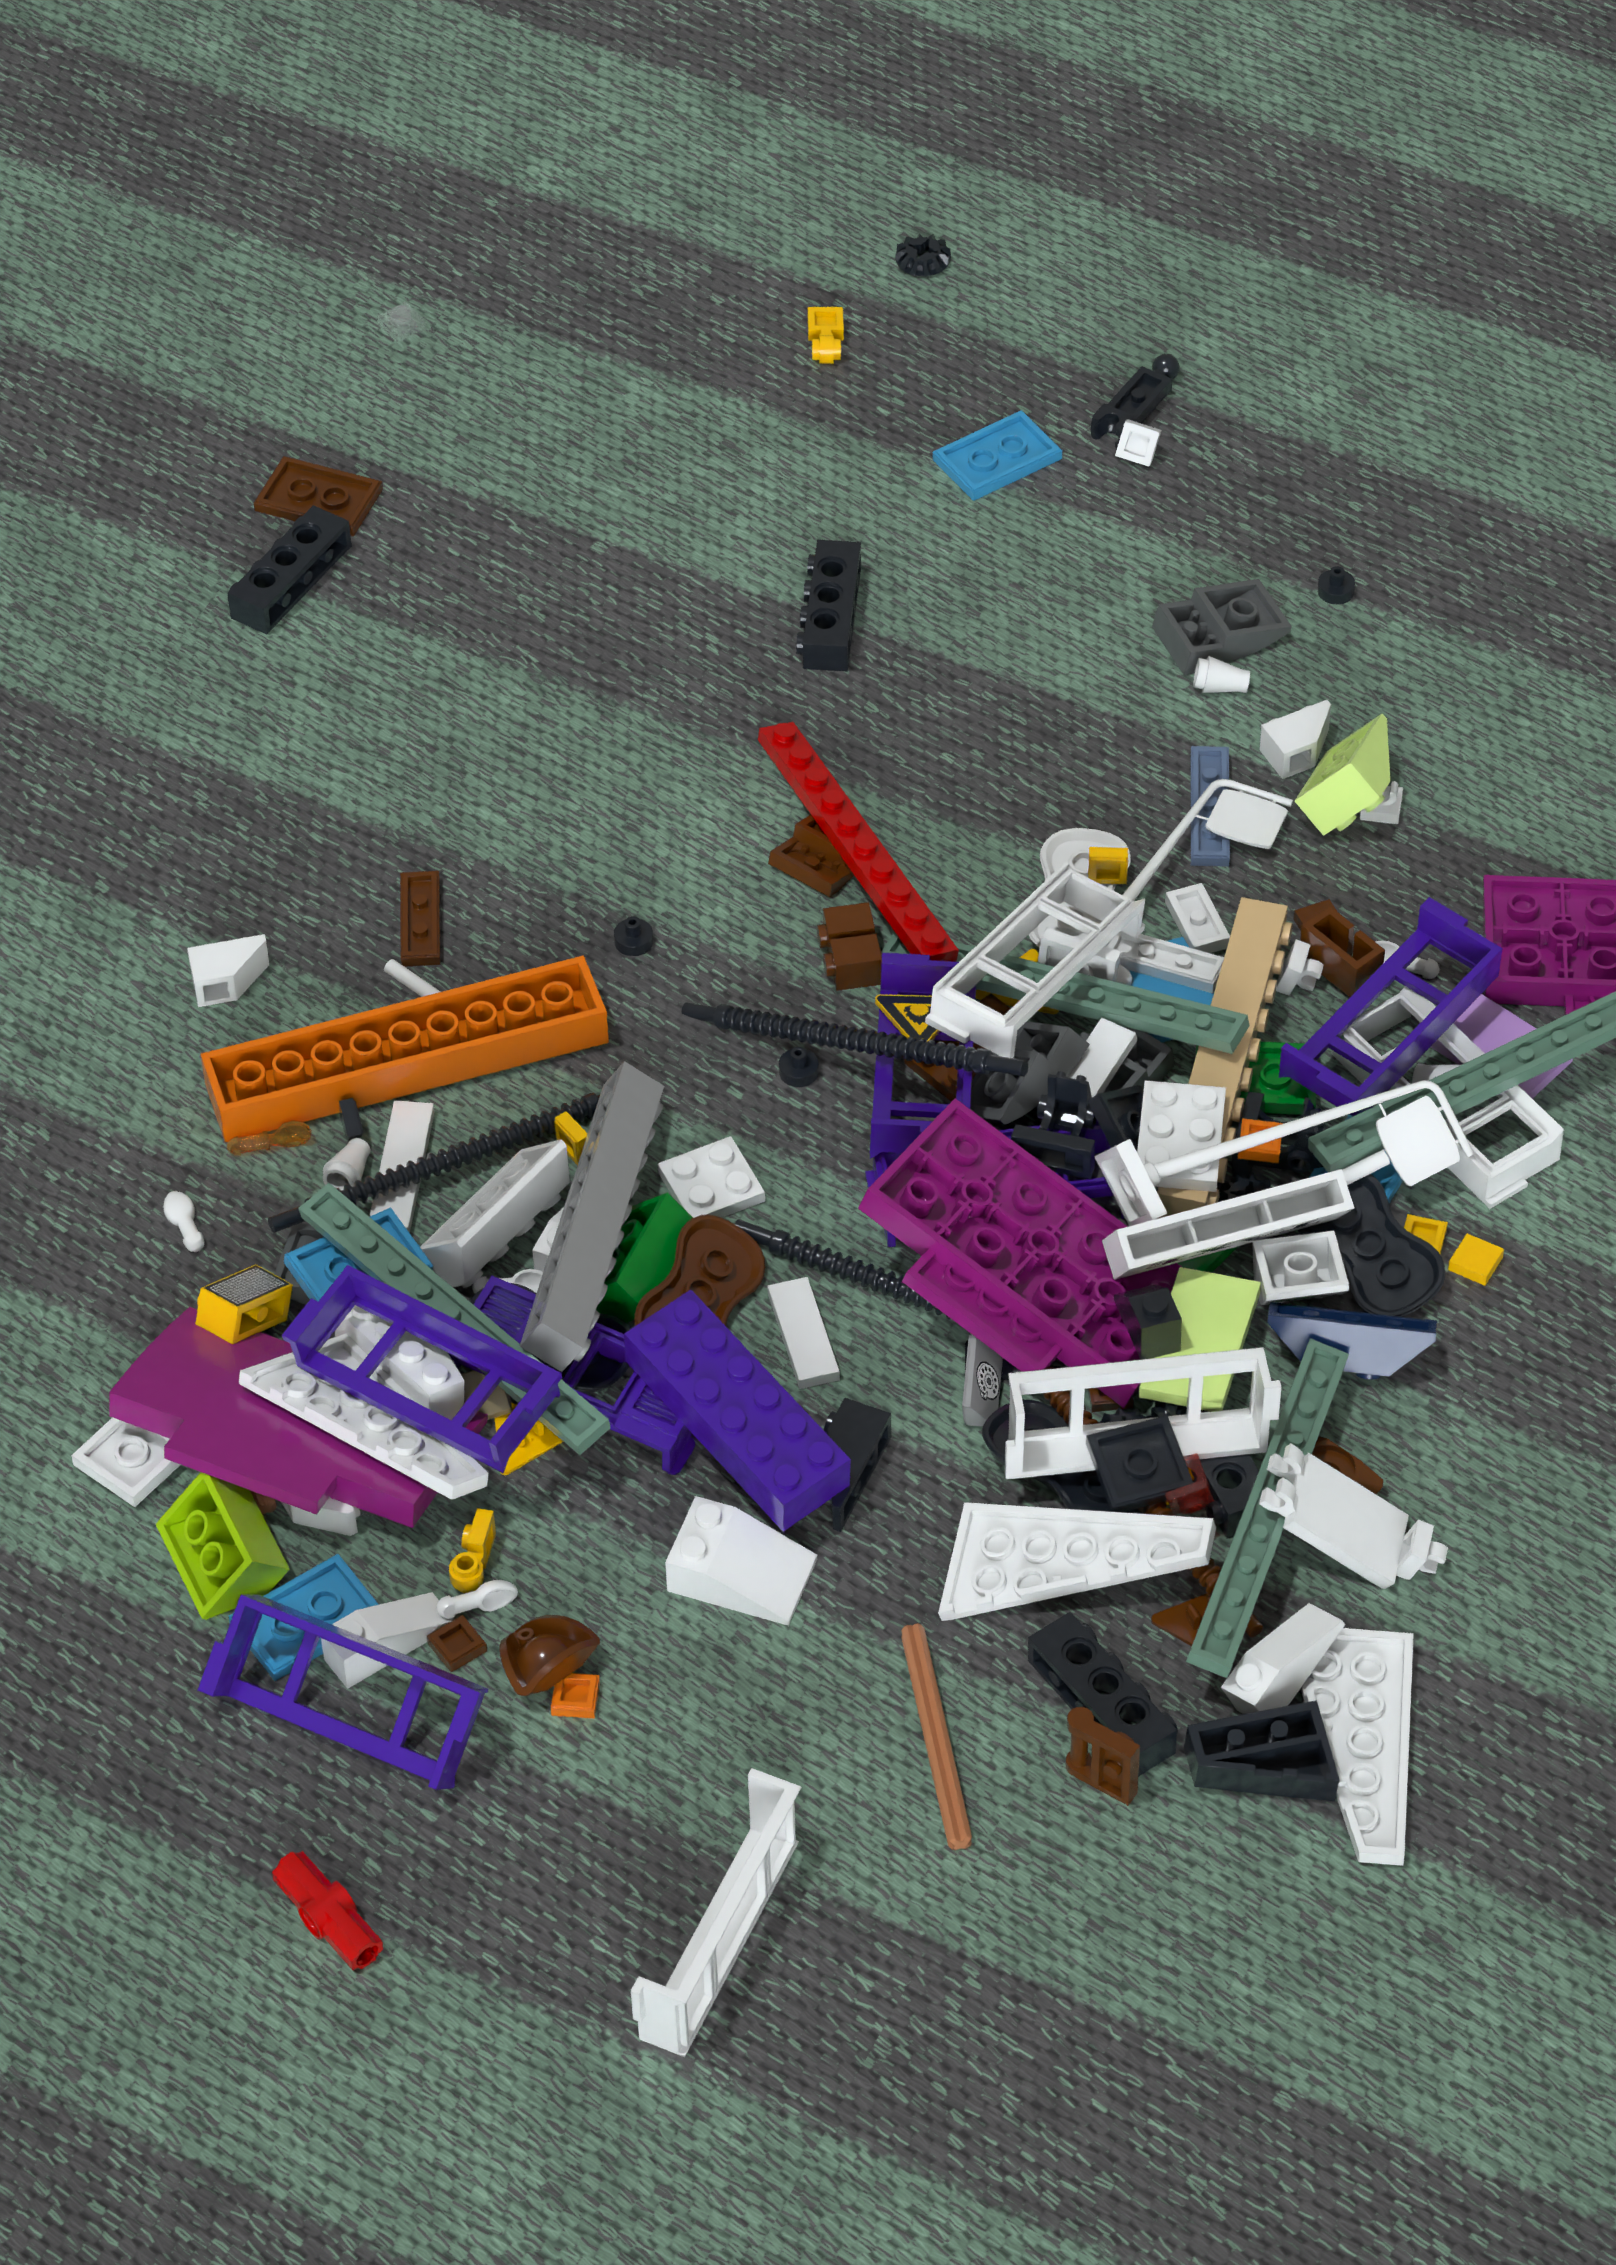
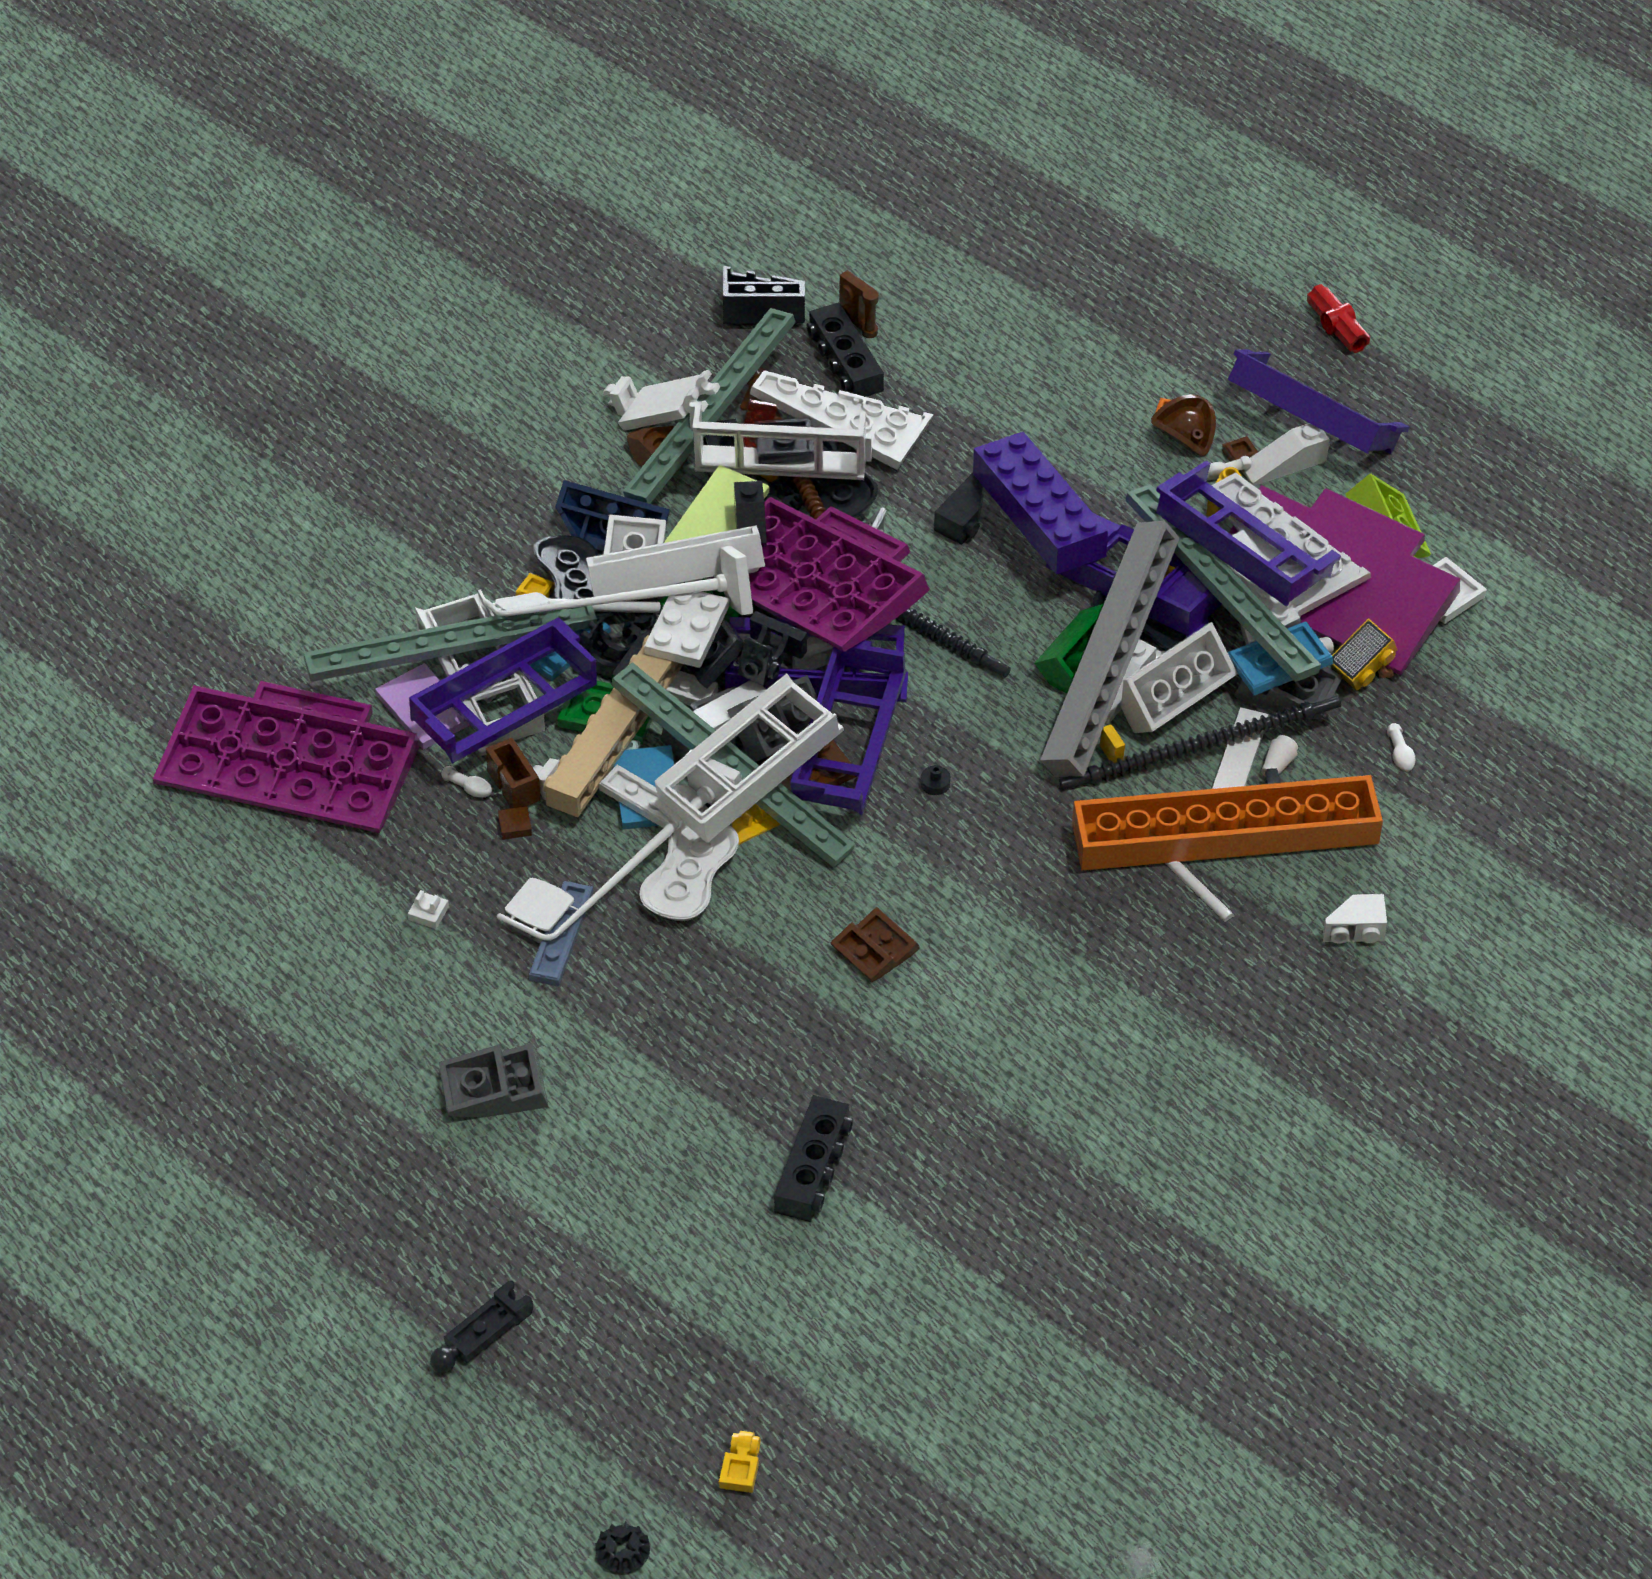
camera: 170 degrees left, 0 degrees up
(289, 569) = (1301, 1248): black brick -> none
(301, 484) = (1240, 1373): reddish brown tile -> none
(322, 1592) = (1335, 474): dark azure tile -> none
(420, 918) = (1200, 948): reddish brown tile -> none
(633, 936) = (1037, 902): black tile -> none
(675, 2012) = (1077, 301): white piece -> none
(712, 1180) = (1017, 709): white plate -> none
(714, 1262) = (1047, 614): reddish brown plate -> none
(737, 1563) = (1071, 454): white slope -> none
(803, 1333) = (976, 598): white tile -> none
(832, 1035) = (814, 675): black hose -> none
(851, 947) = (874, 854): reddish brown piece -> none
(856, 843) = (851, 931): red plate -> none
(908, 1014) = (842, 770): piece -> none
(936, 1737) = (952, 355): nougat axle -> none
(997, 455) = (623, 1301): dark azure tile -> none
(1108, 865) = (664, 861): yellow tile -> none
(1138, 442) = (497, 1274): white tile -> none
(1197, 918) = (606, 834): white plate -> none
(1217, 676) = (512, 1034): white cone -> none
(1265, 1152) = (628, 635): orange tile -> none
(1282, 1661) = (726, 336): white slope -> none
(1296, 739) = (472, 964): white slope -> none
(1336, 586) = (383, 1110): black tile -> none
(1348, 778) = (450, 906): yellowish green slope -> none
(1366, 1716) = (692, 320): white wing -> none
(1476, 1259) = (506, 569): yellow tile -> none

